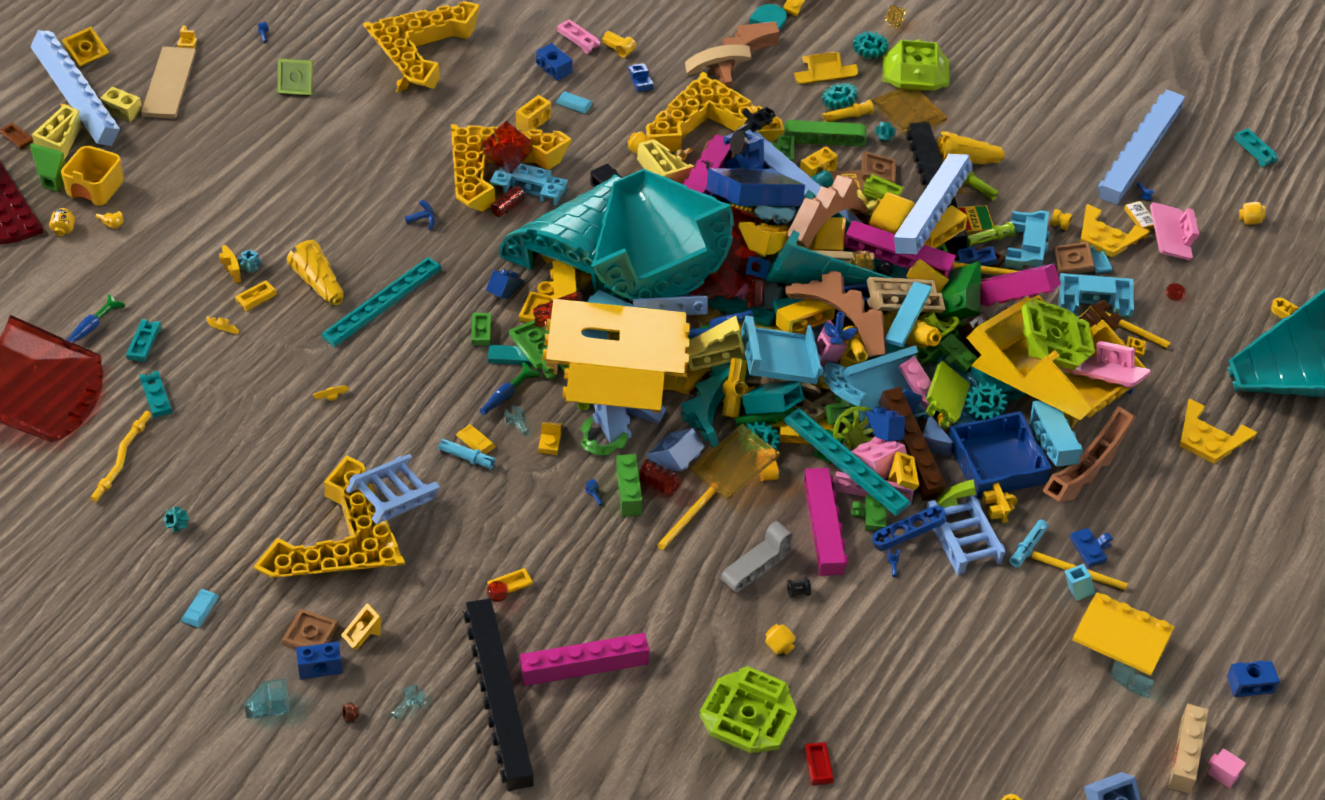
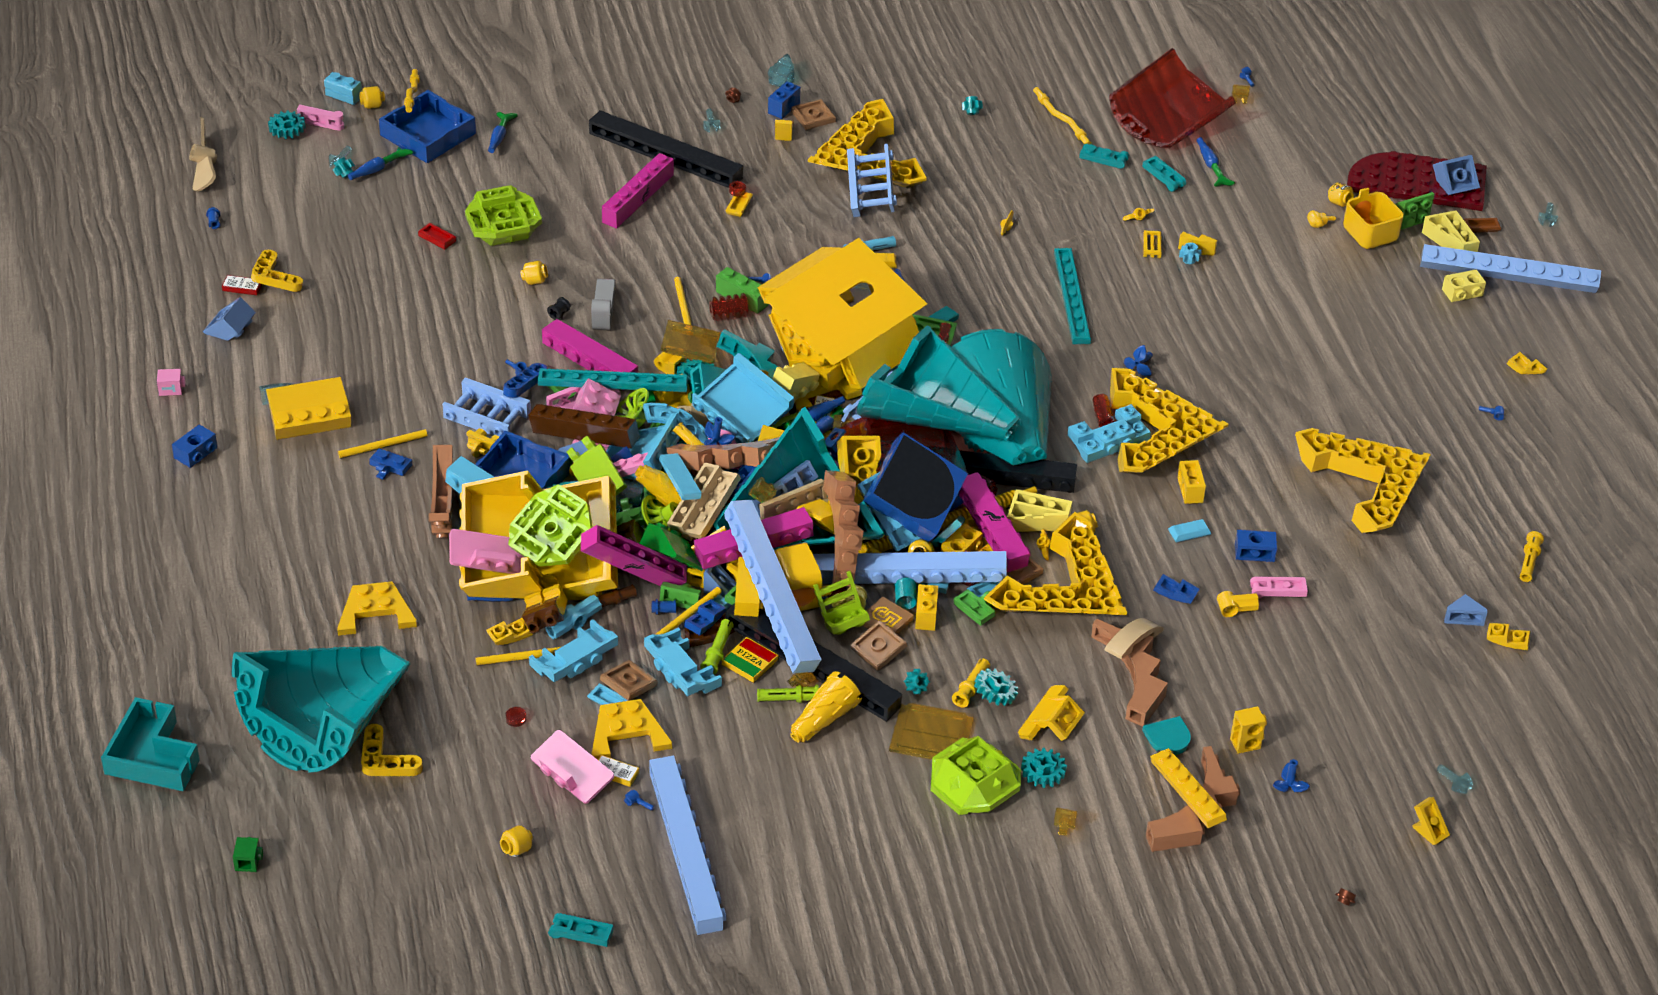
camera: 135 degrees right, 5 degrees down
(84, 46) = (1566, 301): yellow slope -> none
(168, 82) = (1473, 328): tan tile -> none
(200, 608) = (891, 88): medium azure tile -> none
(295, 76) = (1396, 383): lime tile -> none
(315, 271) = (1141, 270): yellow cone -> none
(481, 329) = (979, 318): bright green plate -> none
(510, 149) = (1148, 416): clear red piece -> none
(677, 449) = (743, 325): medium blue slope -> none
(752, 156) = (979, 543): blue panel -> none
(754, 123) = (1003, 561): black piece -> none
(826, 133) = (962, 646): bright green beam -> none
(886, 424) = (610, 405): blue slope -> none
(904, 471) = (561, 392): yellow slope -> none
(949, 496) = (515, 421): lime slope -> none
(1025, 548) = (434, 429): medium azure pin -> none
(1061, 219) = (676, 707): yellow wheel -> none
(1079, 582) = (370, 422): medium azure brick -> none
(1188, 748) = (205, 375): tan brick -> none

